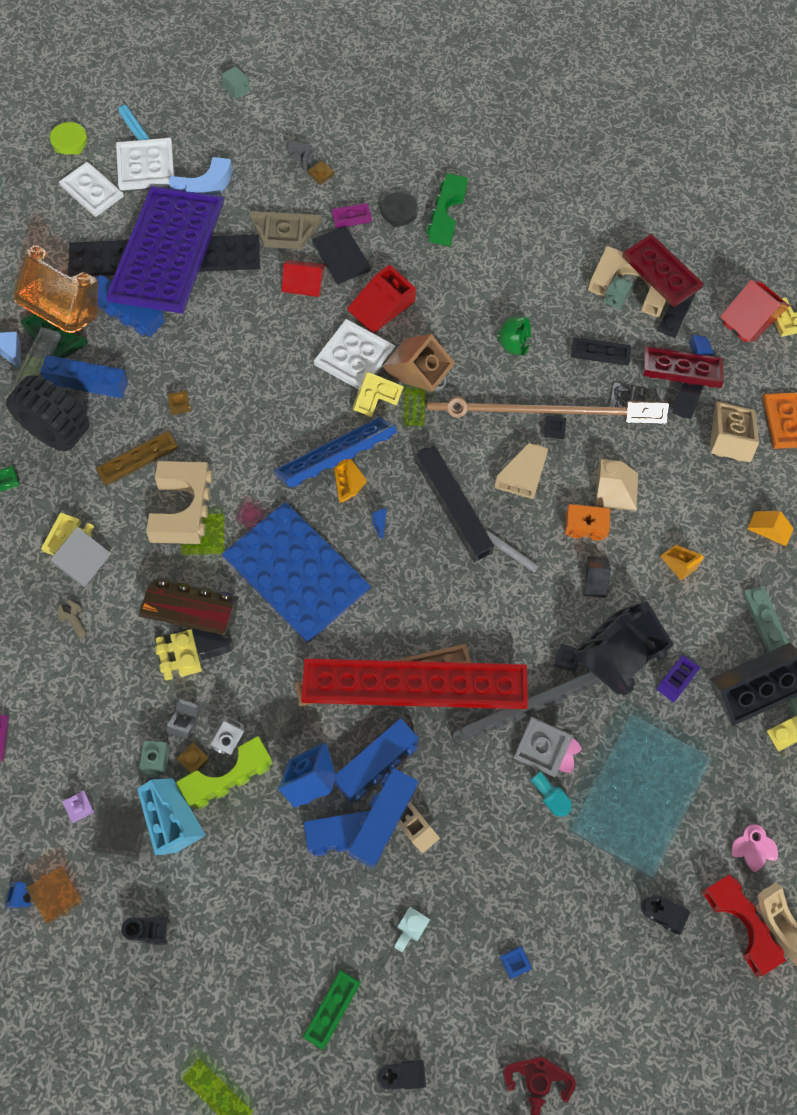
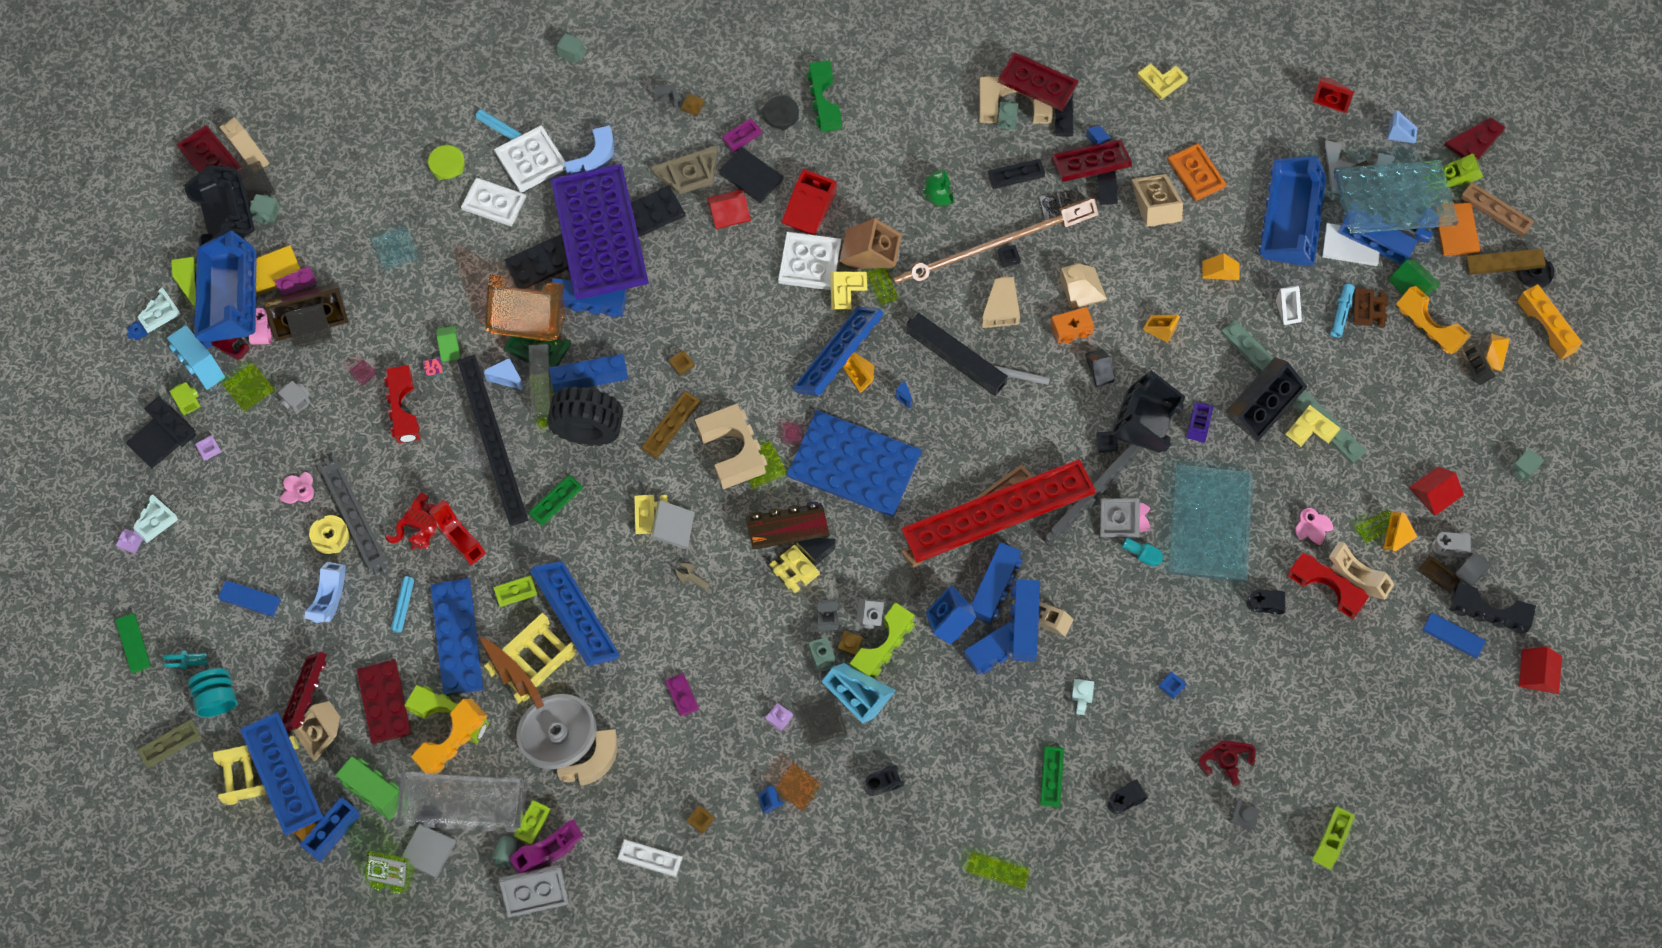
camera: 20 degrees left, 0 degrees up
(753, 311) = (1129, 87): slope -> none

